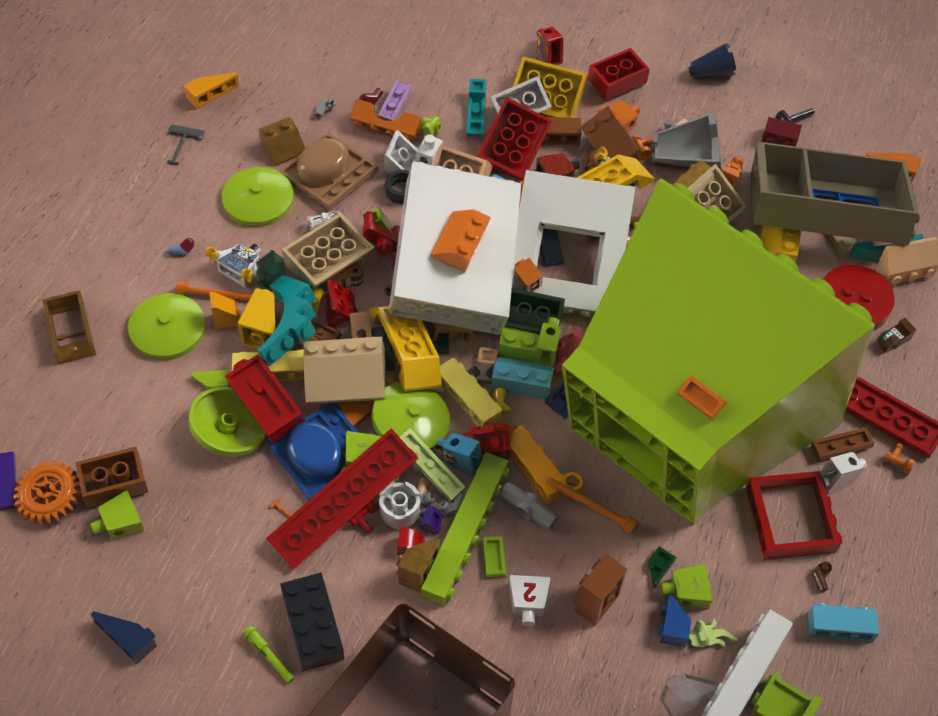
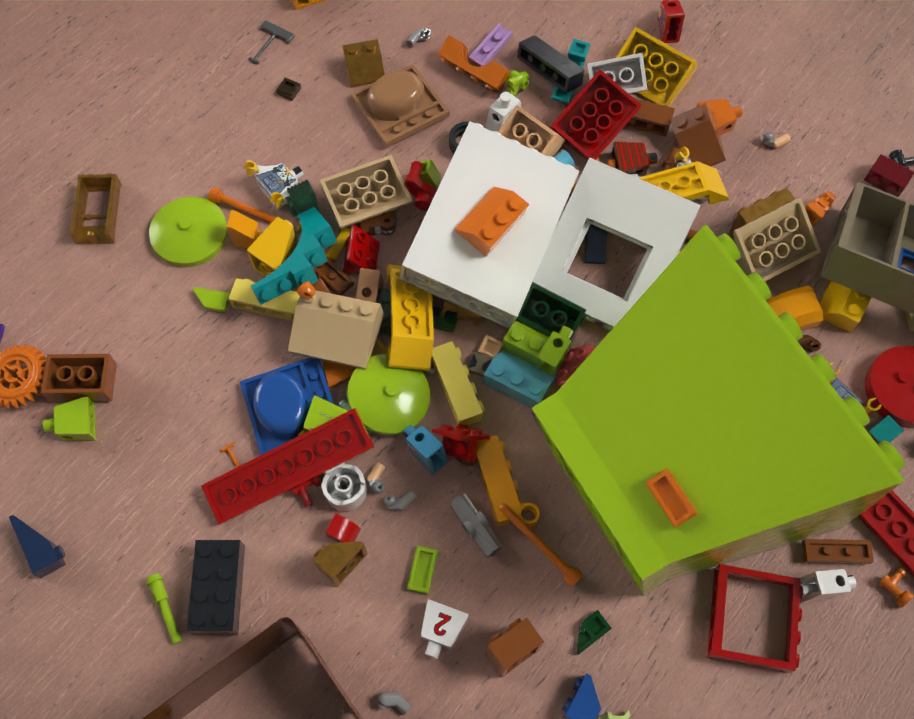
camera: 20 degrees right, 10 degrees up
(183, 249) = (232, 153): arm -> none
(216, 179) = (288, 89): none -> dark brown tile
(224, 424) = (208, 350): lime dish -> none
(257, 196) = (321, 116): lime dish -> none
(264, 398) = (247, 336): red piece -> none
(310, 340) = (306, 290): none -> orange hinge
(320, 219) = (369, 156): white connector -> none
(372, 97) = (469, 37): dark red arm -> none
(399, 154) = (474, 104): white slope -> none
(431, 520) = (372, 512): dark purple tile -> none
(432, 466) = (389, 453): yellowish green plate -> none
(456, 104) = (550, 63): none -> black brick
(465, 529) = (402, 532): lime brick -> none
(498, 395) = (485, 396): yellow arm -> none
(512, 670) = (393, 699): none -> light grey arm
(527, 275) = (554, 274): orange brick -> none
(618, 74) = (732, 68): red brick -> none
(645, 151) = (732, 161): orange piece -> none
(688, 143) = (783, 165): light grey cone -> none
(689, 587) = (613, 667): lime torso -> none
(714, 64) = (840, 80): dark blue cone -> none
(820, 574) = (761, 695): reddish brown arm -> none

